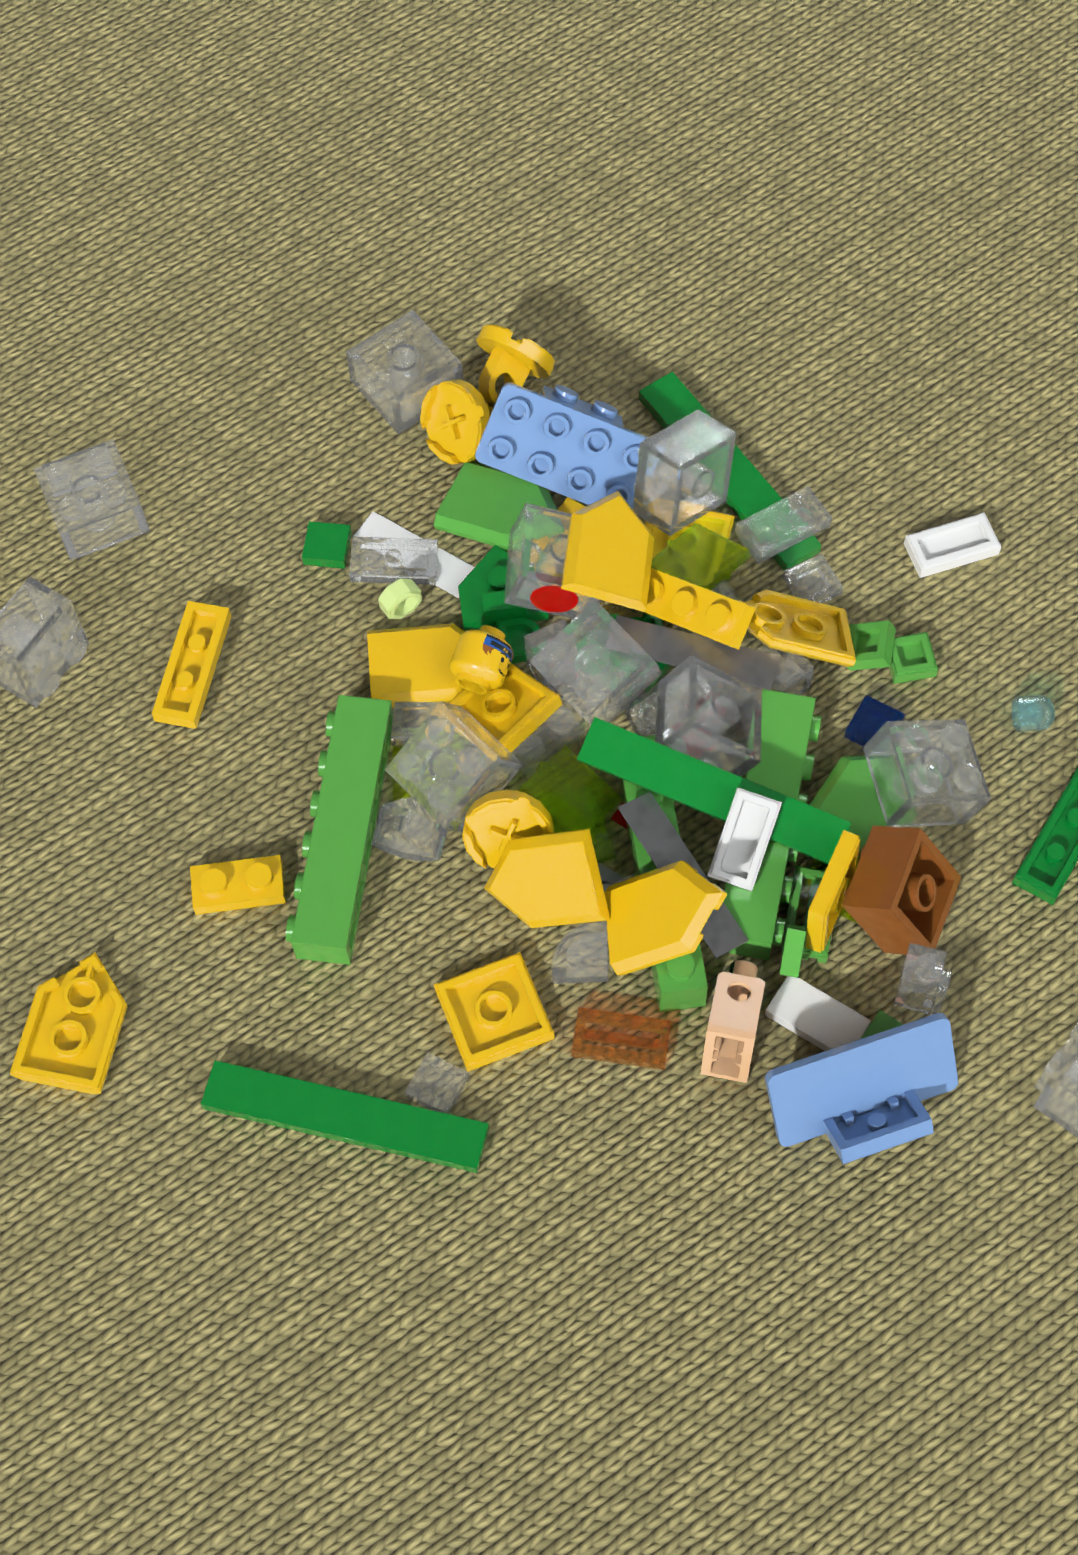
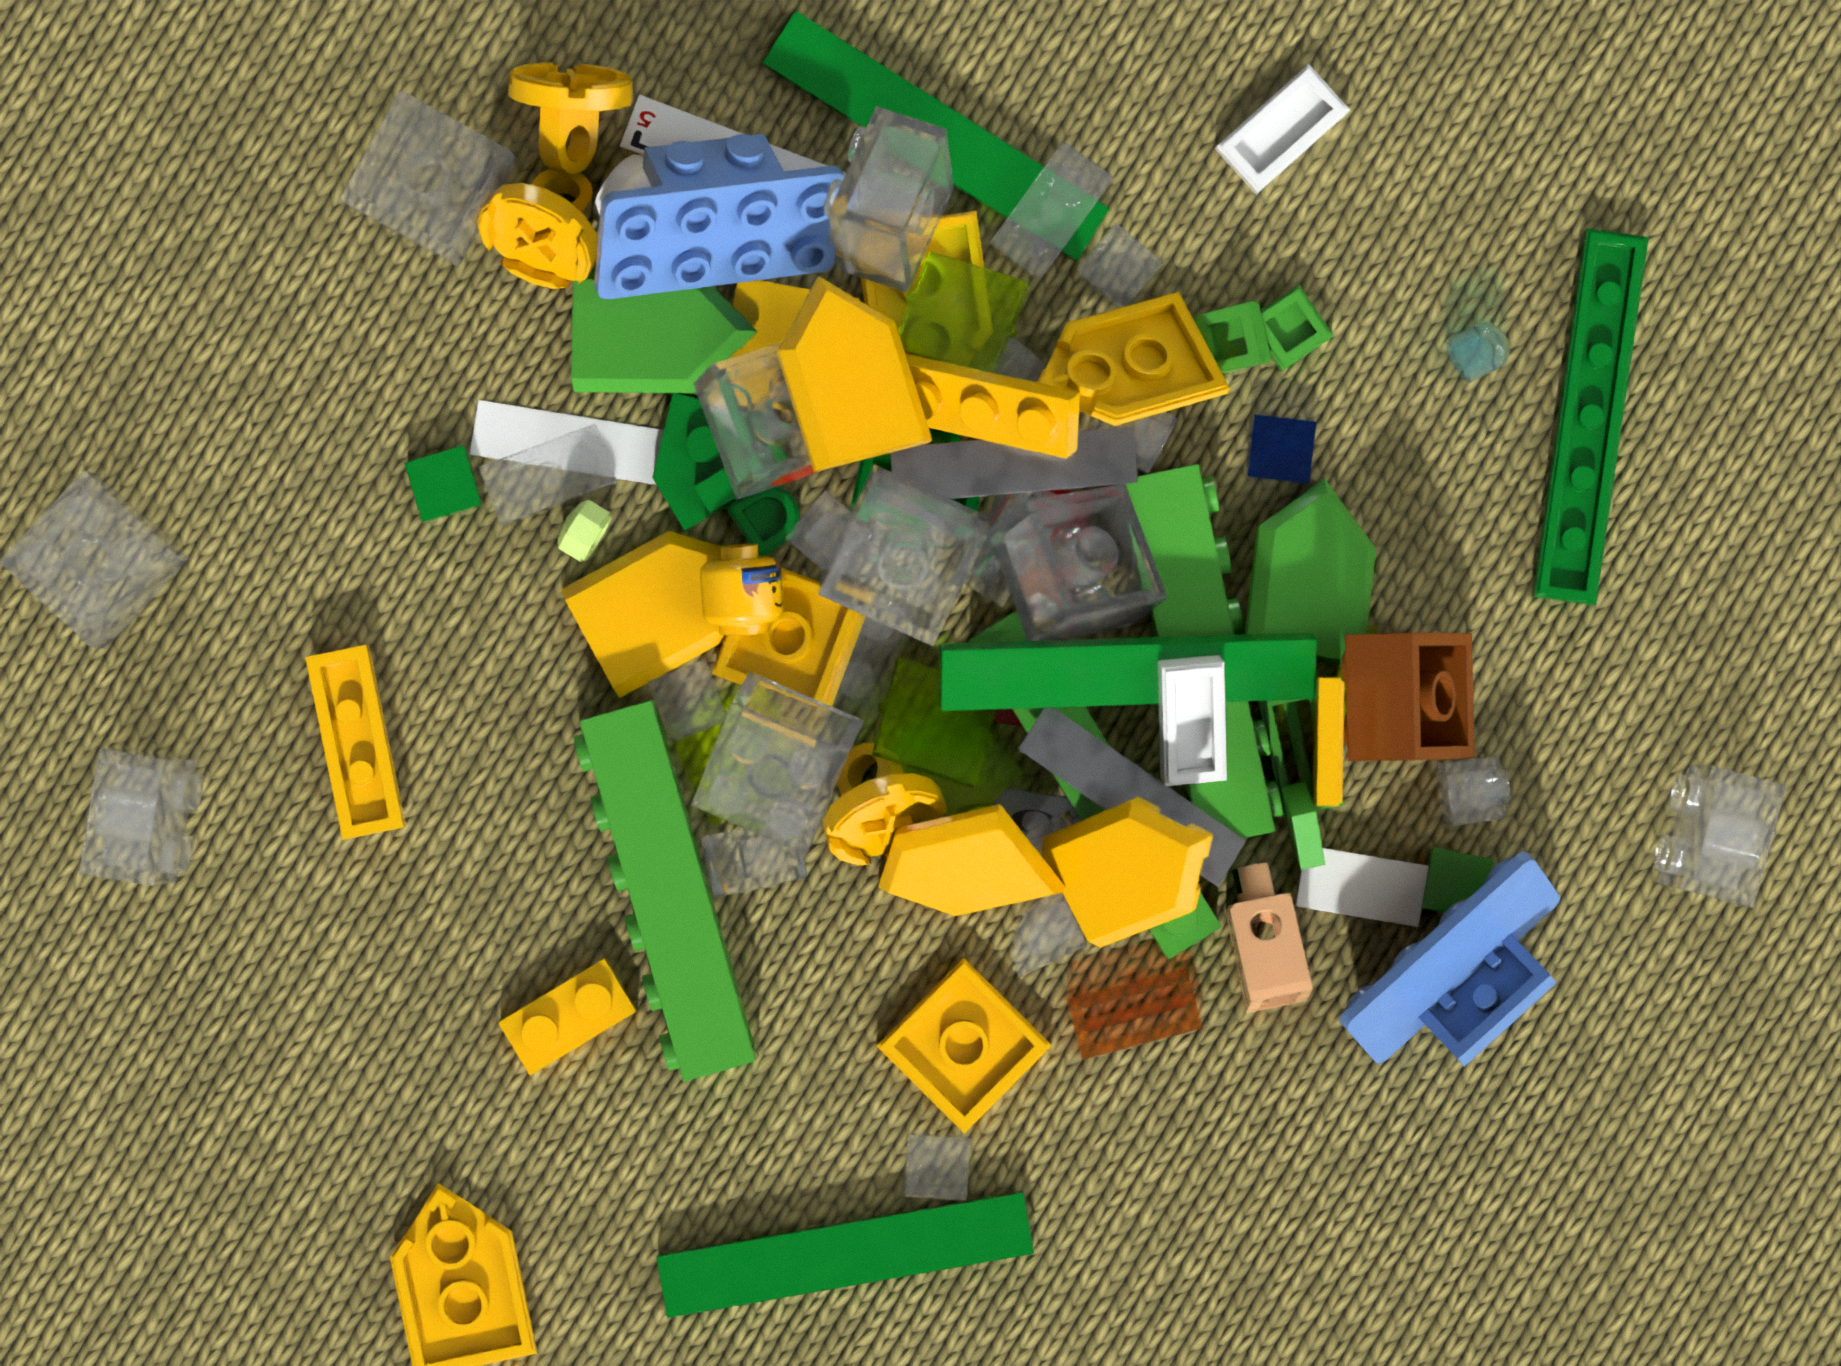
camera: 30 degrees left, 25 degrees up
(926, 773) = (1378, 511): clear brick -> none

